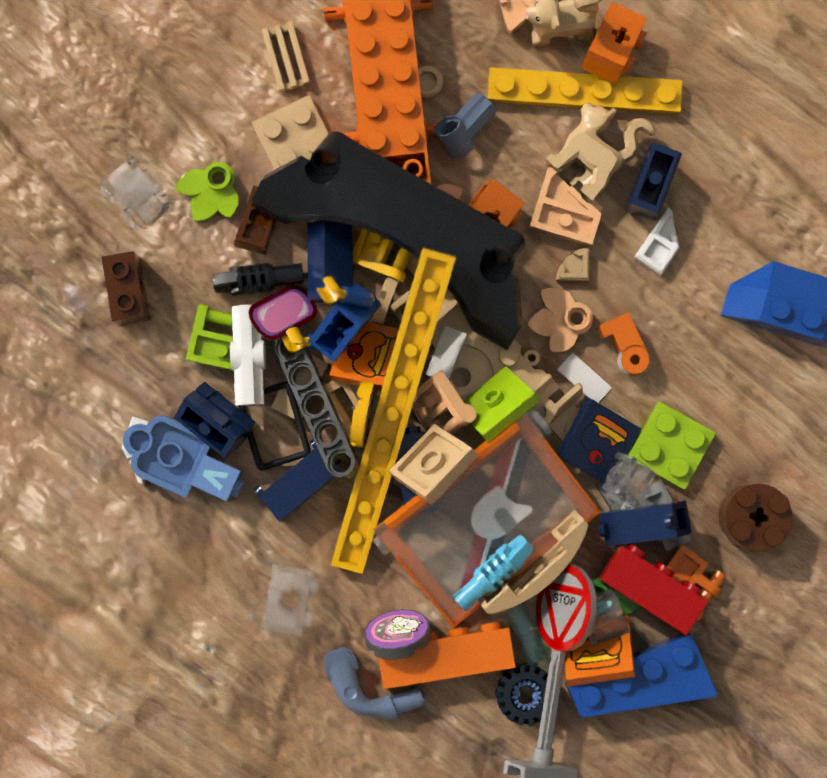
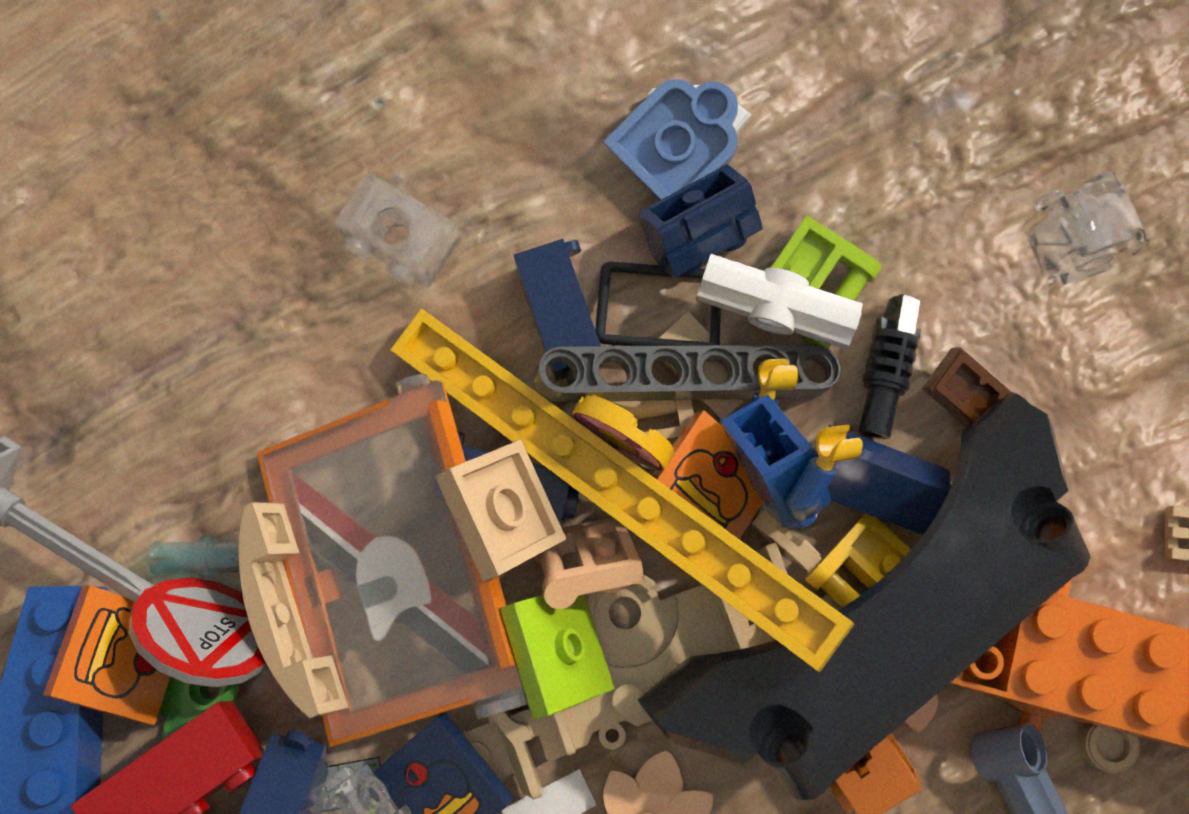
camera: 110 degrees right, 5 degrees down
(125, 288) = (944, 169): reddish brown brick -> none
(208, 196) = (1041, 340): lime plate -> none
(218, 479) = (612, 197): medium blue brick -> none
(281, 312) = (827, 375): sticker -> none
(291, 132) = (1106, 499): tan plate -> none
(341, 671) = (264, 267): sand blue piece -> none
(397, 634) = (277, 362): tile -> none
(446, 351) = (670, 604): white sticker -> none
(452, 656) = (218, 424): orange brick -> none
(494, 571) = (305, 540): medium azure hinge -> none
(508, 692) = (125, 496): black bush -> none
(609, 619) = (157, 694): clear brick -> none

